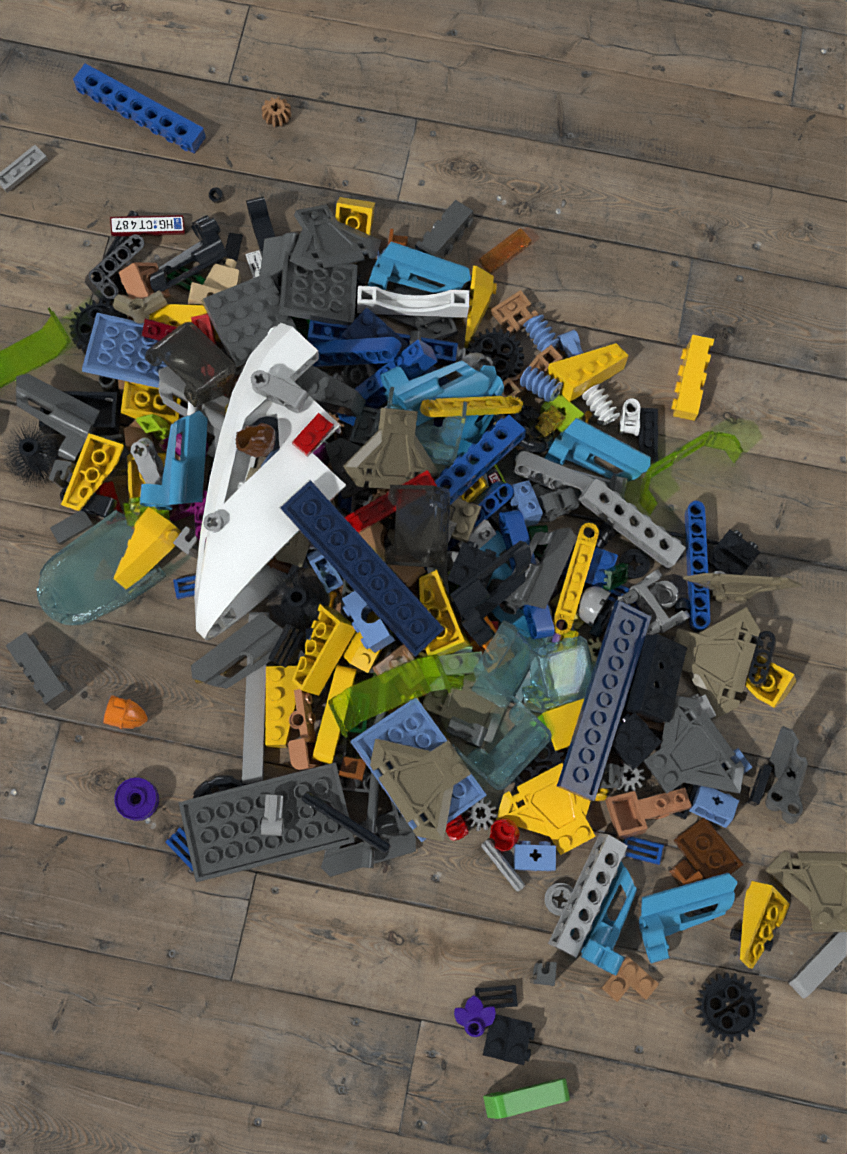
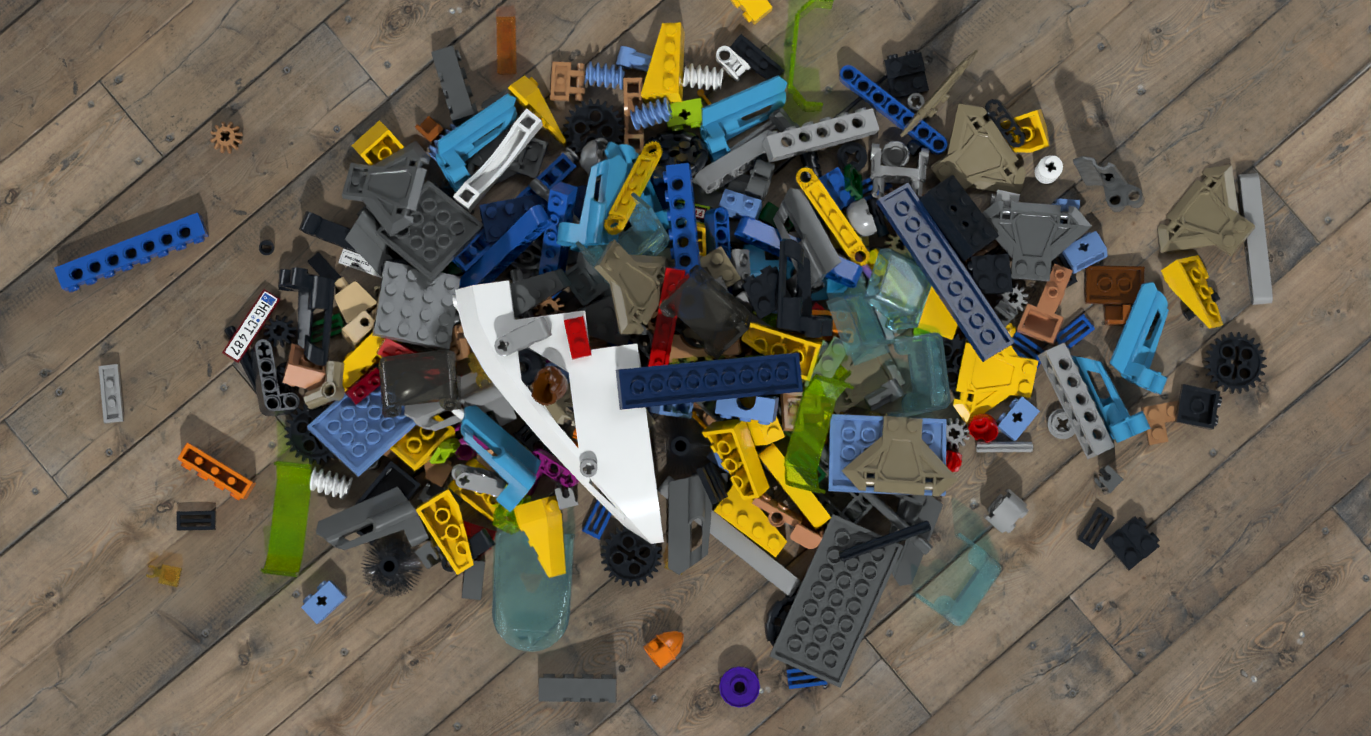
camera: 45 degrees left, 10 degrees up
(15, 278) = (216, 471): none -> orange brick
(67, 365) = (329, 483): none -> white piece
(159, 248) = (285, 334): none -> black gear
(164, 634) = (621, 570): none -> black gear
(272, 820) = (841, 594): light grey piece -> none
(353, 768) = (846, 504): dark orange panel -> none
(361, 932) = (959, 610): none -> clear light blue windscreen
(450, 907) = (1006, 511): none -> light grey brick
(475, 1013) = (1095, 552): dark purple plate -> none
(526, 1099) = (1184, 563): bright green beam -> none
(549, 421) = (687, 131): clear yellow brick -> none
(595, 804) = (1028, 342): none -> blue tile
(666, 1004) = (1198, 407): none -> black plate
(755, 722) = (1055, 166): none -> white piece
(759, 785) = (1096, 204): black tile -> none

